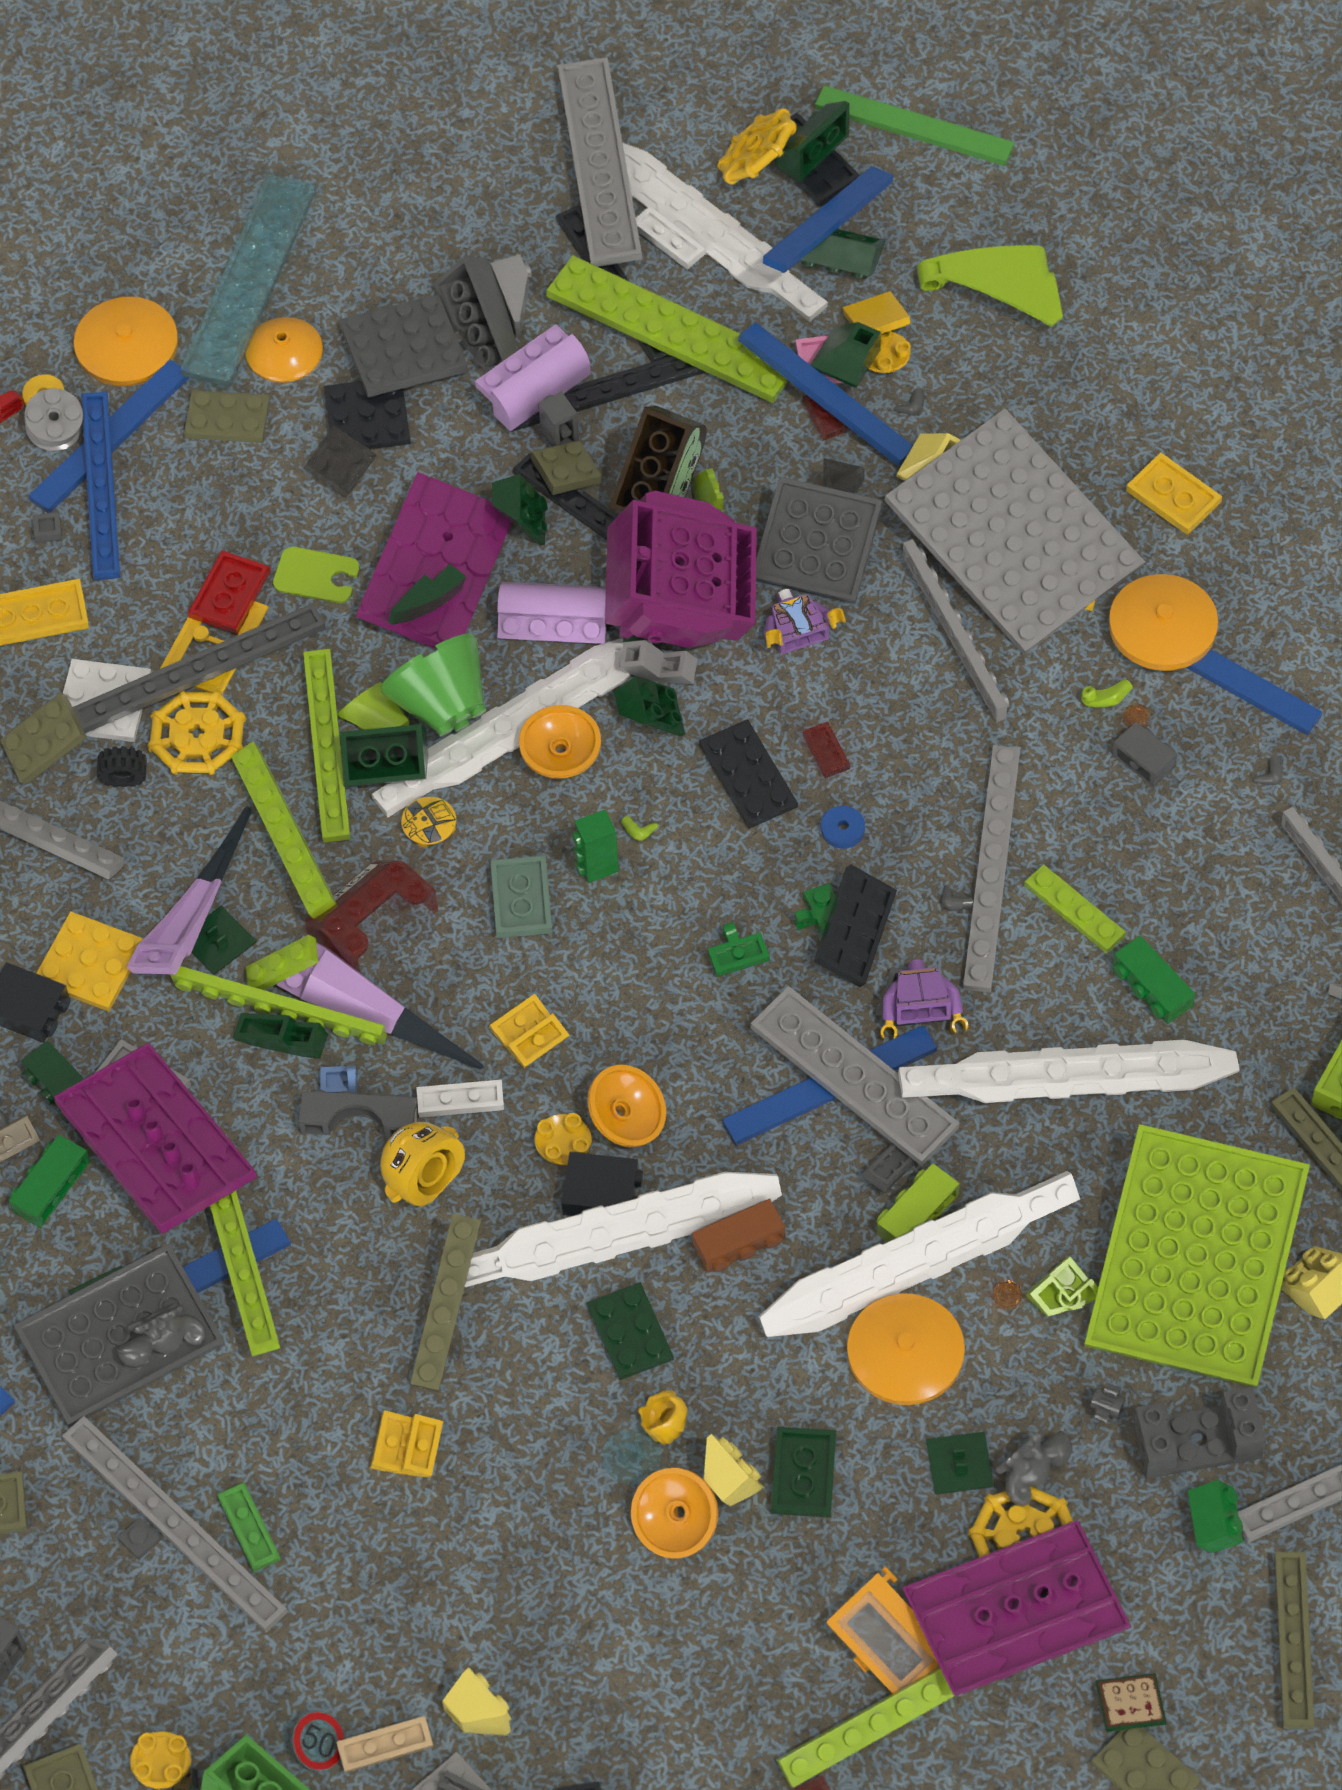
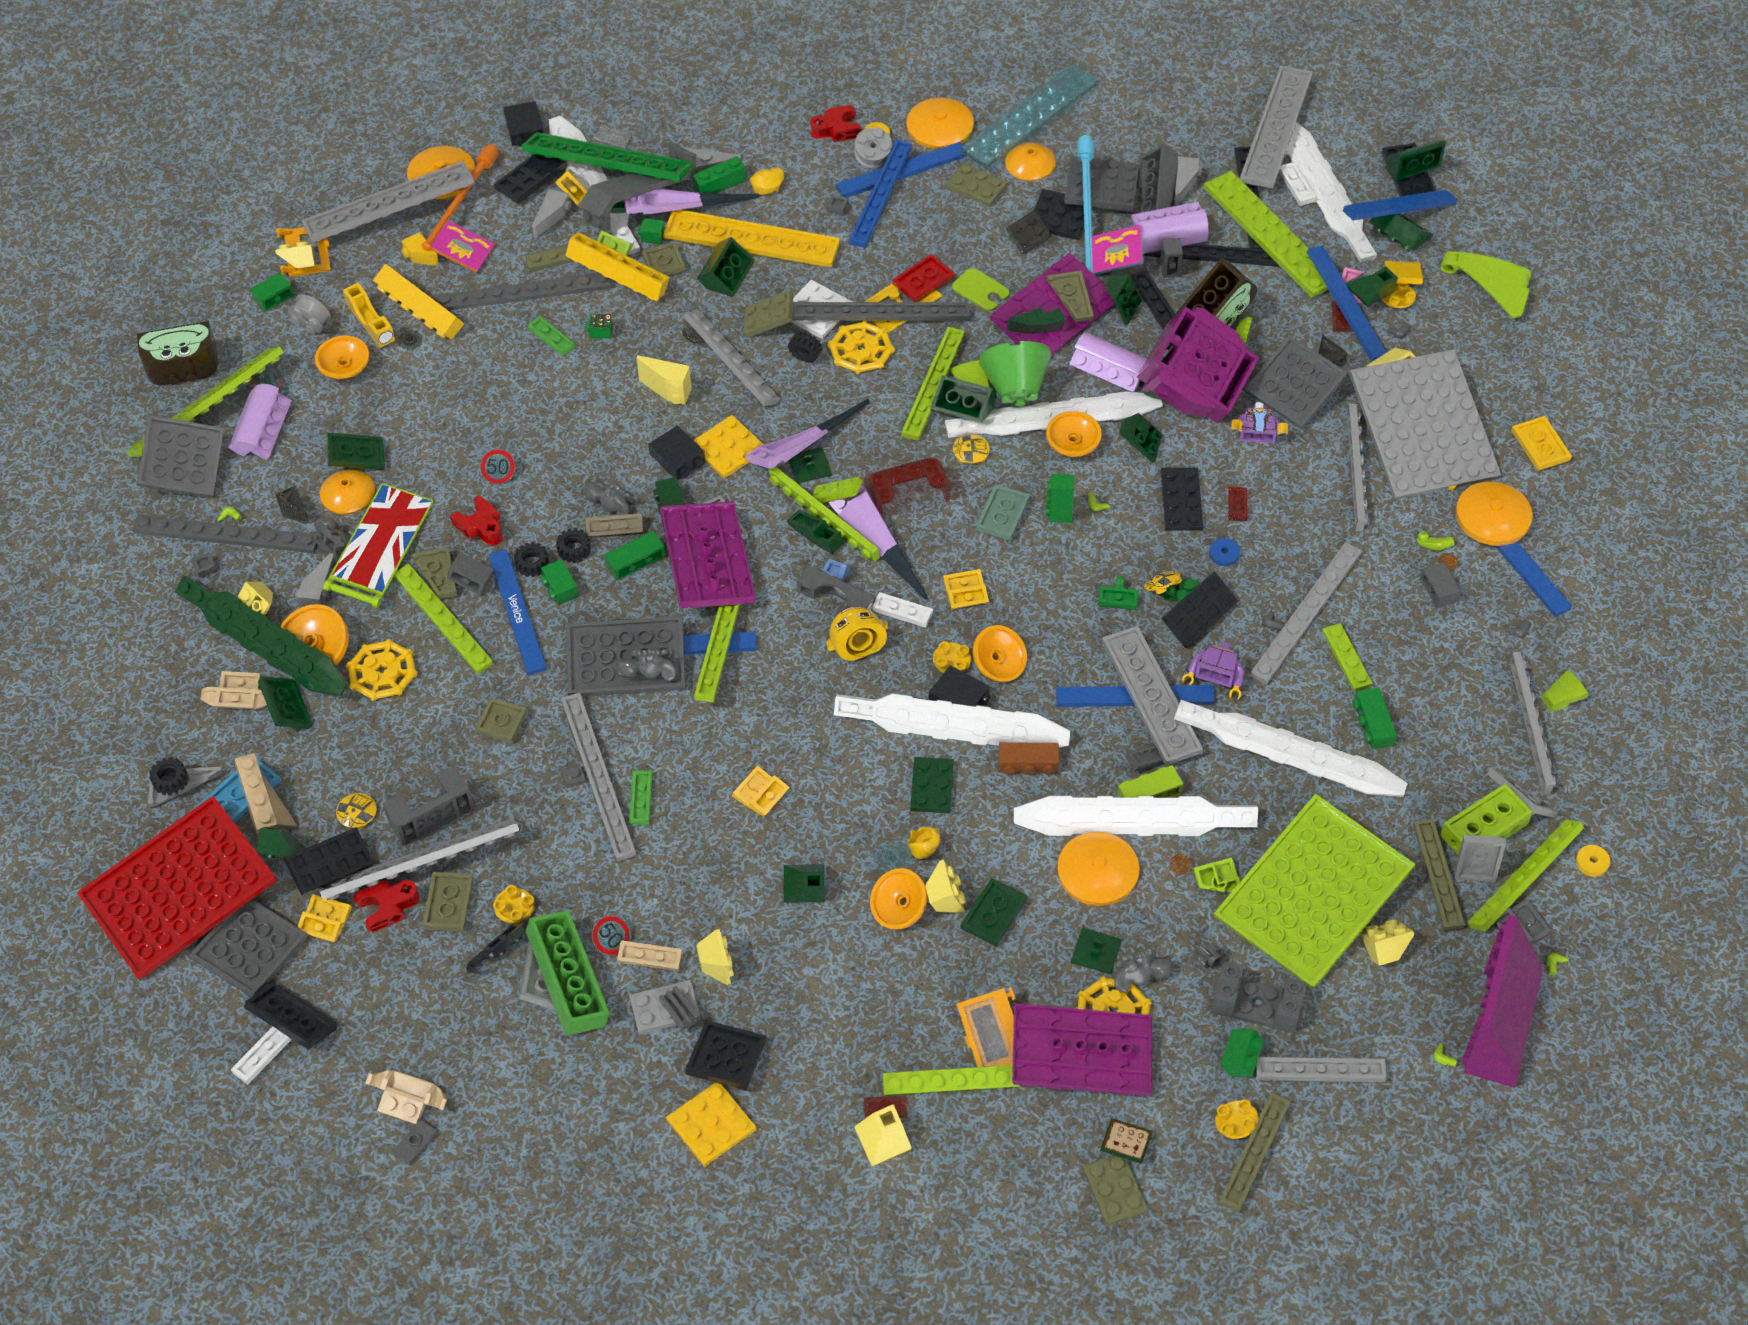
camera: 25 degrees right, 5 degrees down
(283, 830) = (880, 418): lime plate -> none
(445, 1302) = (826, 718): olive plate -> none
(454, 533) = (1073, 294): none -> olive wing
(469, 444) = (1112, 249): none -> flag
(535, 1546) = (804, 883): none -> dark green slope
(566, 467) = (1163, 285): olive plate -> none
(652, 664) = (1153, 410): light grey brick -> none
(757, 146) = (1378, 150): yellow plate -> none
(786, 906) = (1162, 580): none -> yellow dish
(920, 126) = (1491, 180): bright green tile -> none
(1250, 1607) = (1236, 1119): none -> yellow dish

